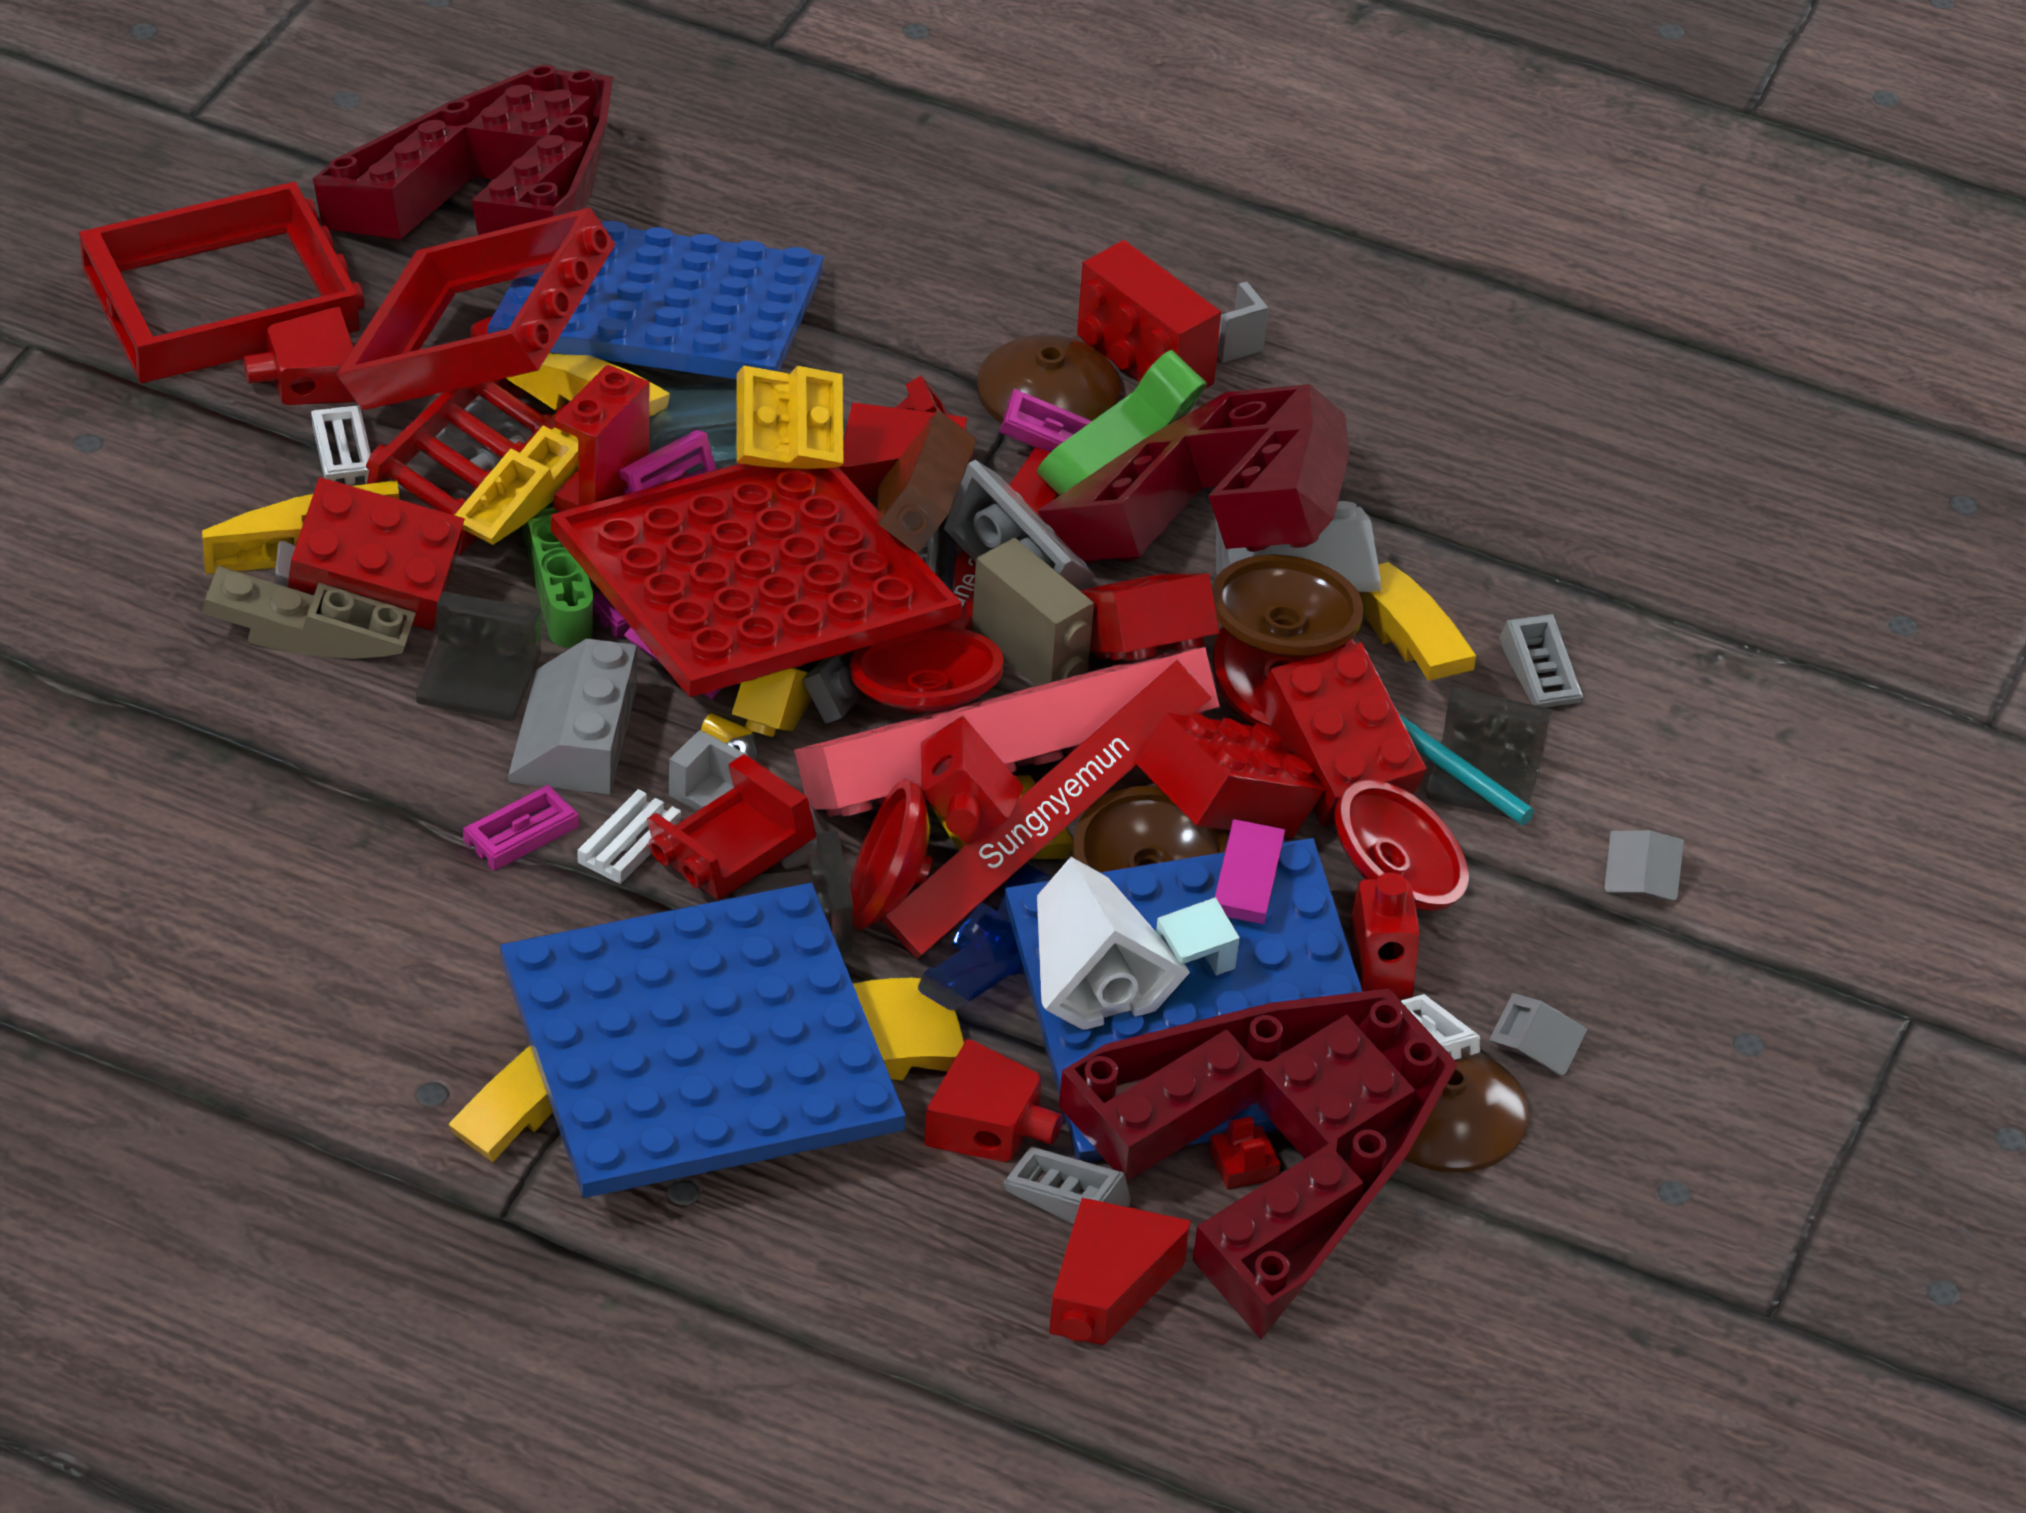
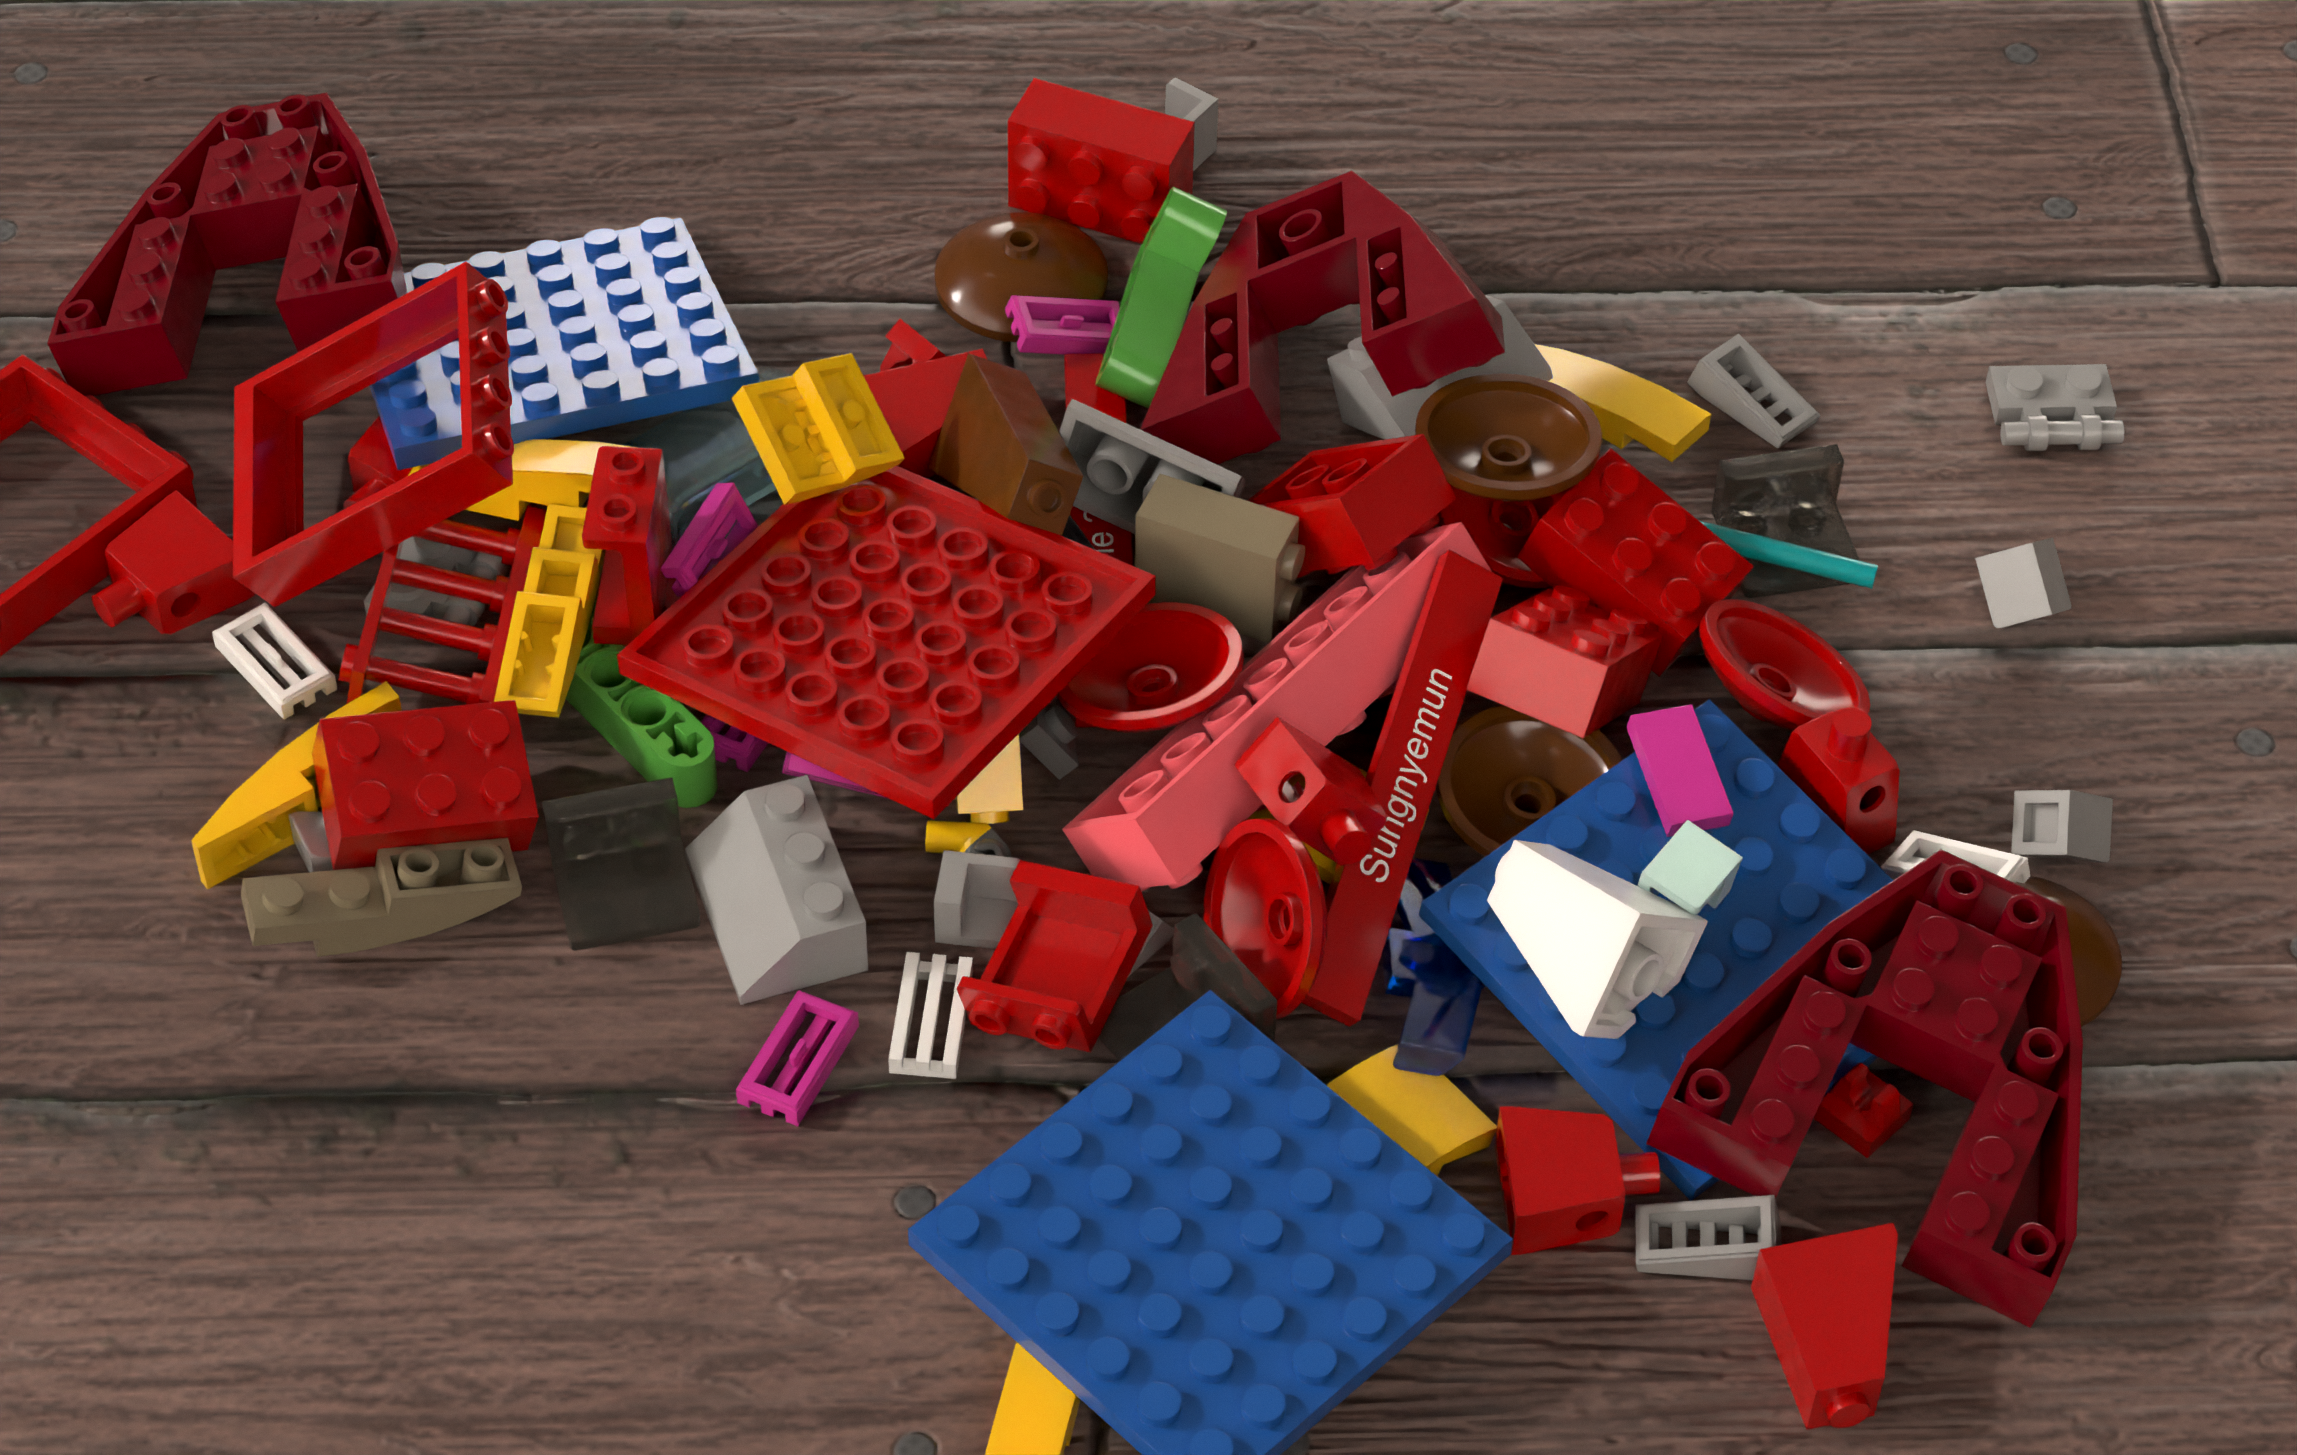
camera: 25 degrees left, 5 degrees up
(1775, 758) = (2054, 406): none -> light grey plate

